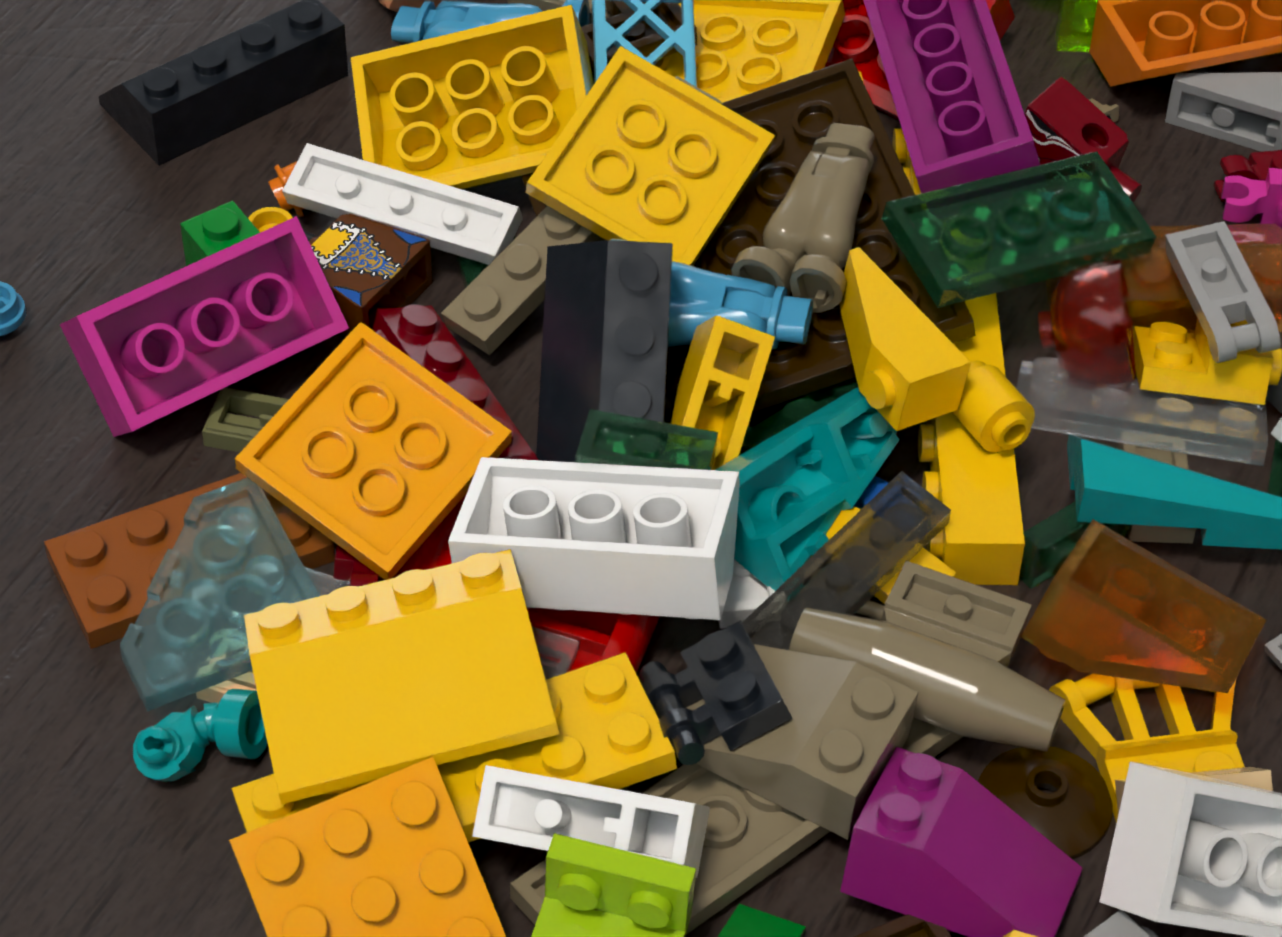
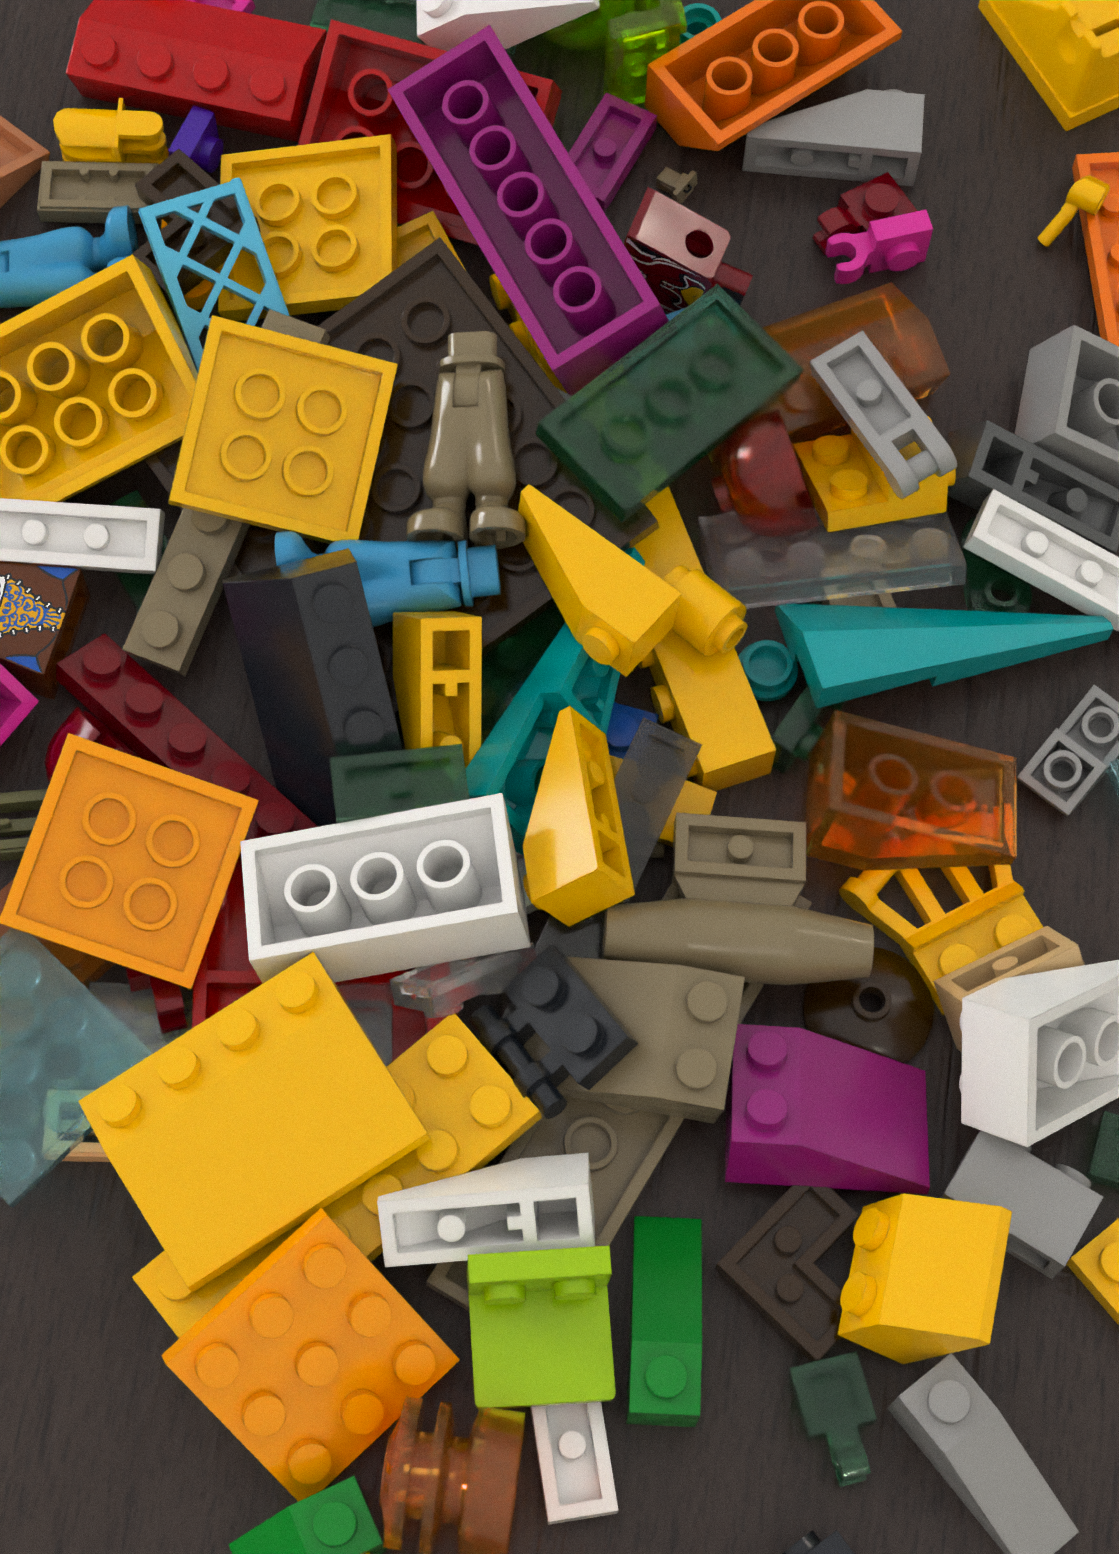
camera: 20 degrees left, 20 degrees up
(180, 739) = (53, 1226): teal arm -> none
(624, 629) = (444, 986): none -> clear plate
(801, 536) = (575, 828): none -> yellow slope
(1043, 492) = (769, 669): none -> teal plate
(1045, 61) = (611, 145): none -> magenta plate

